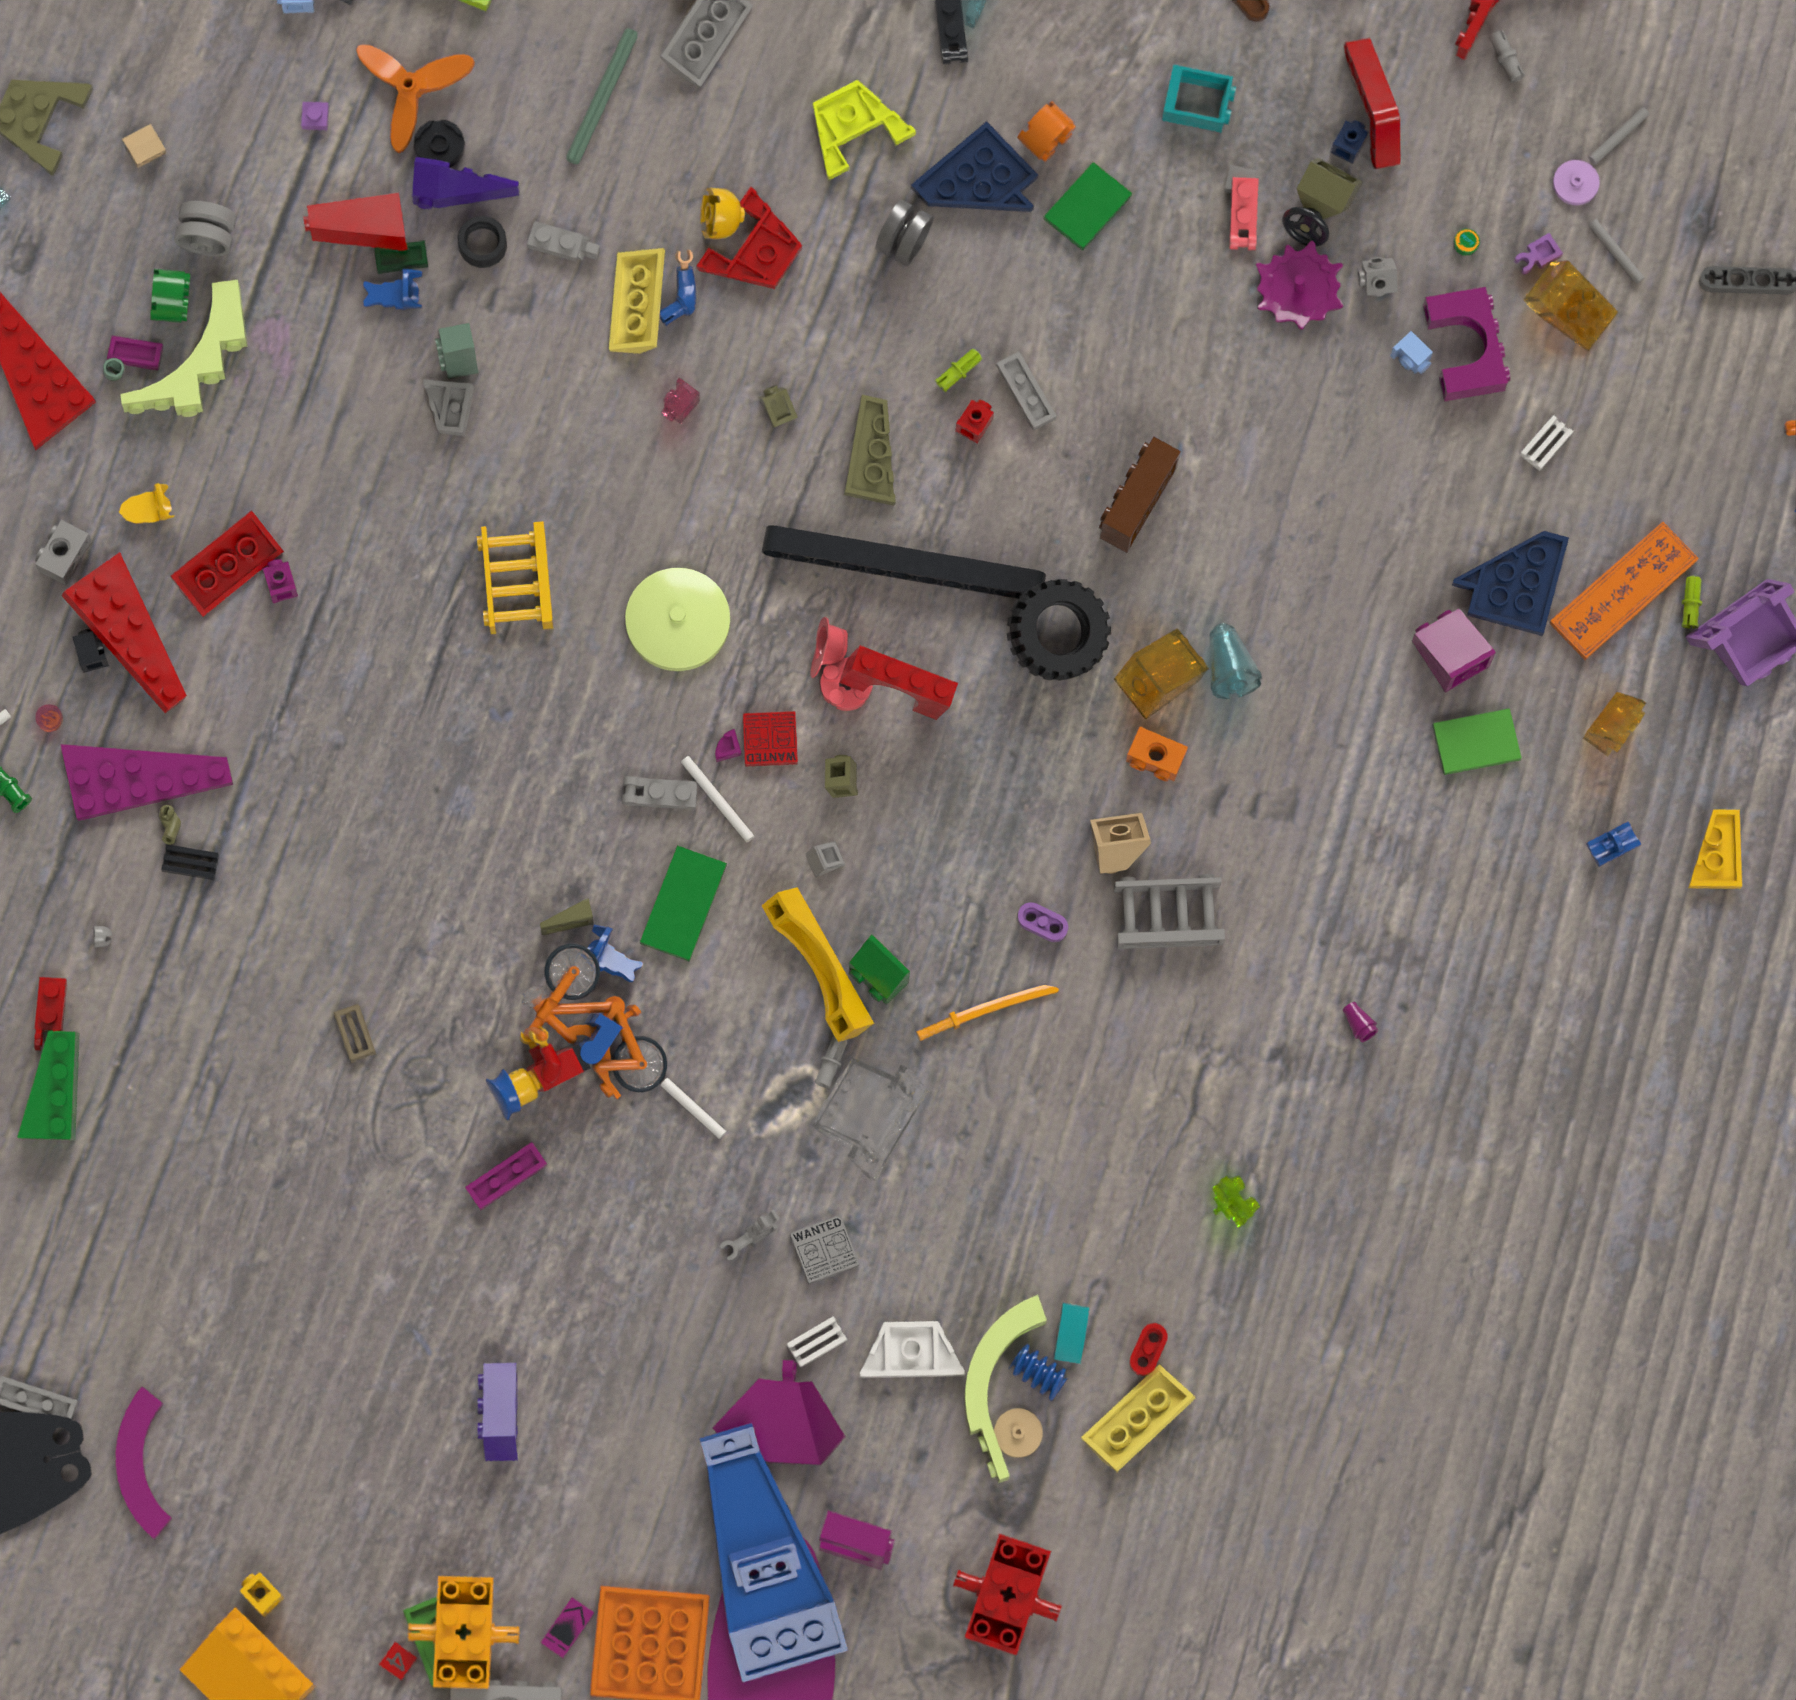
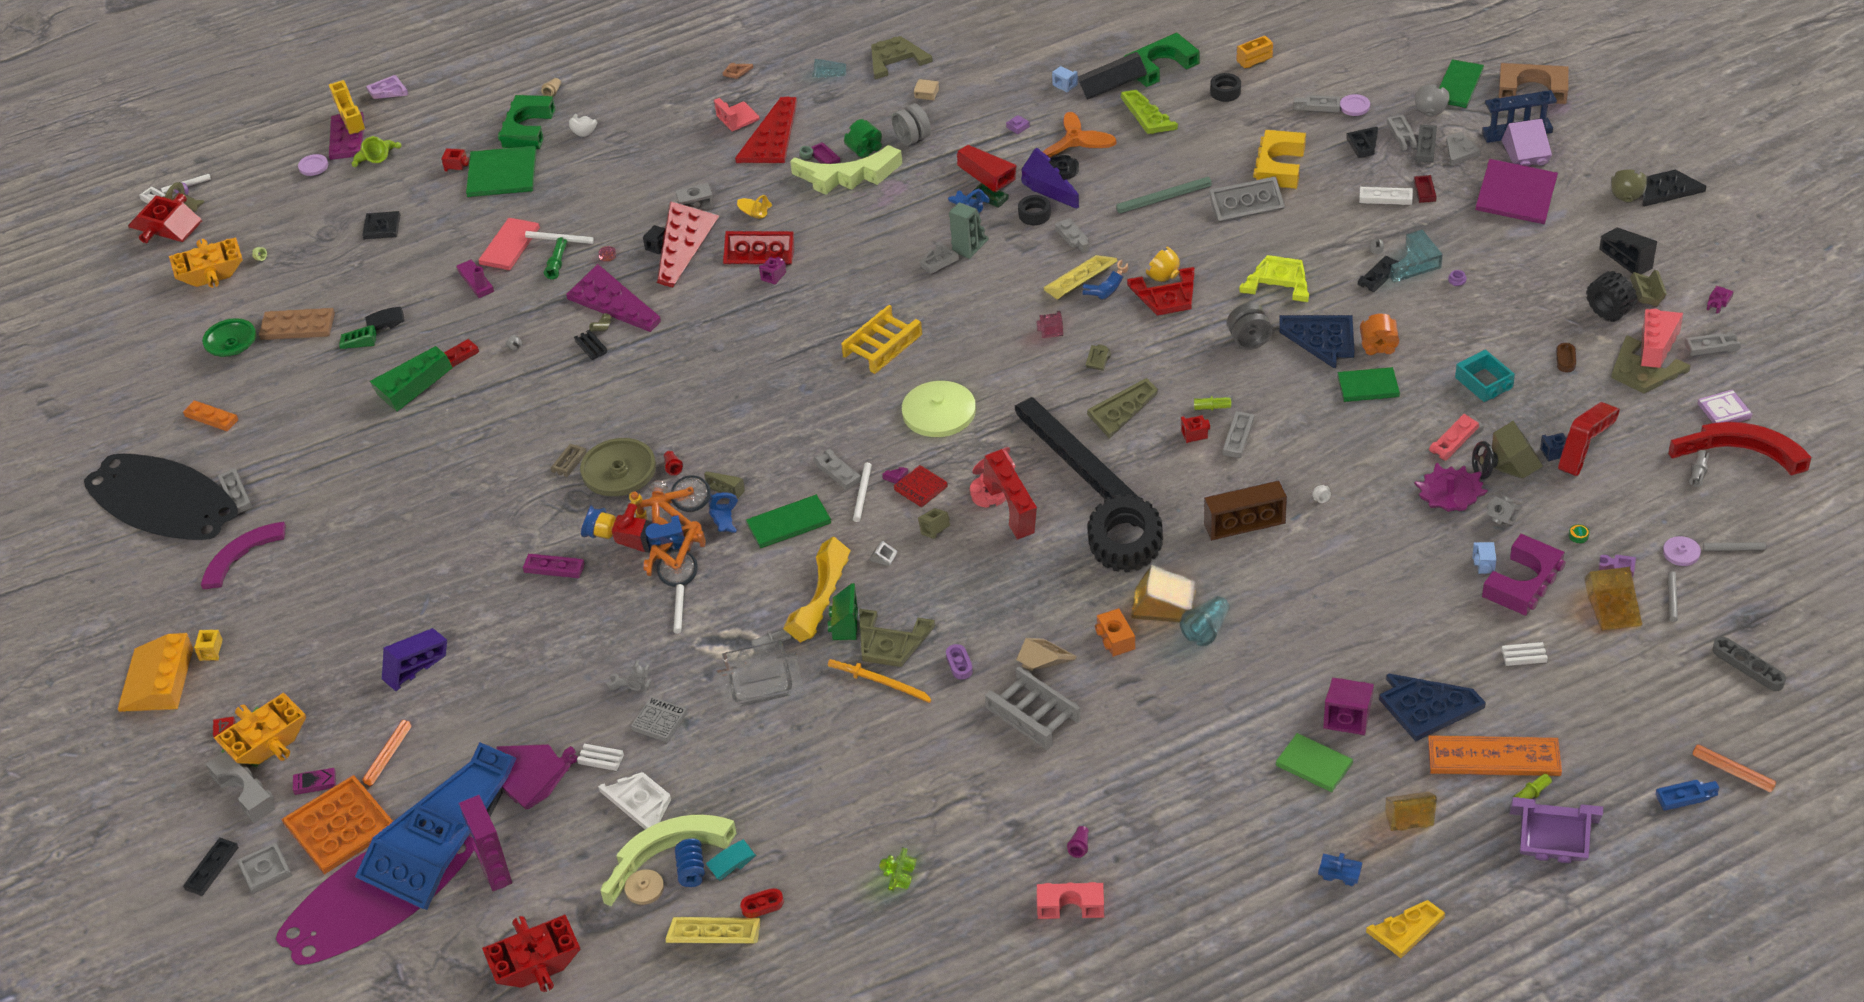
camera: 55 degrees right, 30 degrees down
(433, 999) = (618, 467): none -> olive dish
(477, 939) = (673, 464): none -> red cone
(601, 1532) = (386, 752): none -> orange axle
(953, 965) = (889, 645): none -> olive wing
(1181, 400) = (1321, 494): none -> white plate
(1431, 1073) = (1055, 896): none -> coral arch

